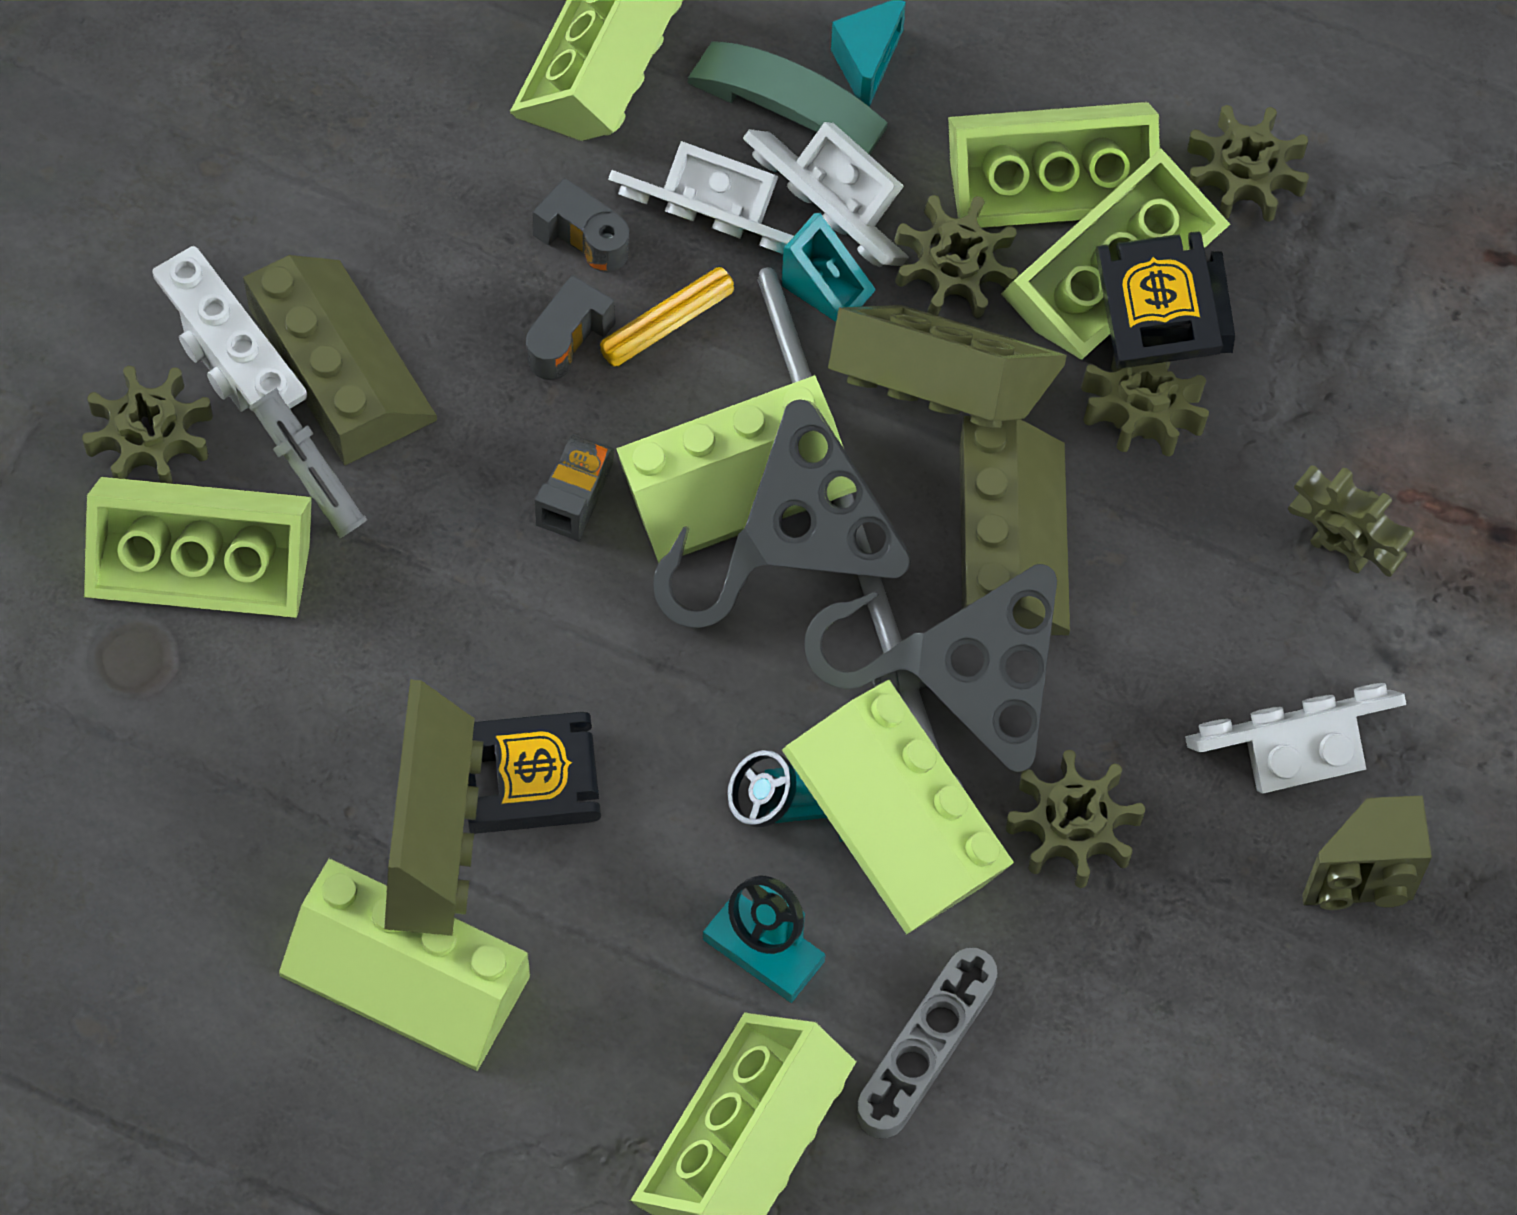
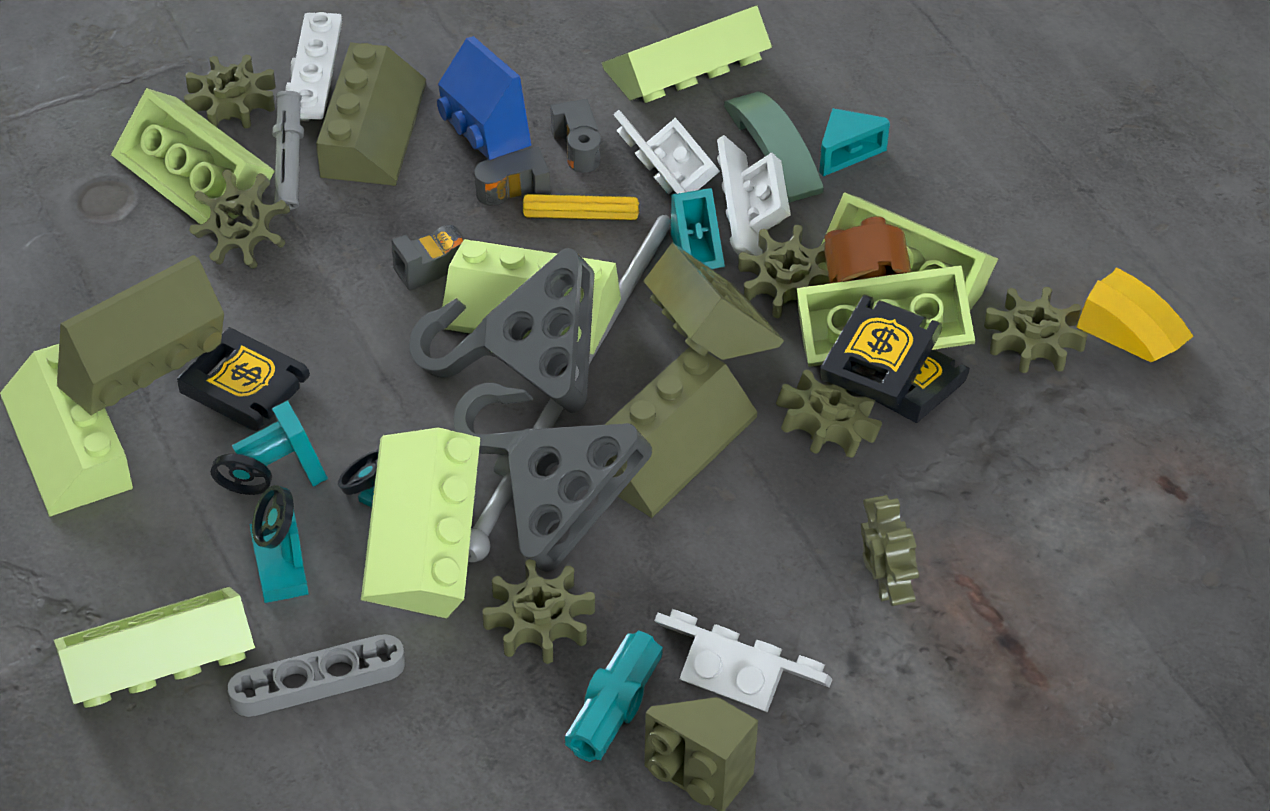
camera: 40 degrees right, 15 degrees down
(344, 611) = (241, 203): none -> olive gear
(469, 257) = (484, 101): none -> blue slope
(670, 807) = (264, 448): none -> teal piece
(1051, 199) = (866, 251): none -> dark orange brick
(1225, 856) = (613, 696): none -> teal piece
(1337, 91) = (1132, 317): none -> yellow slope

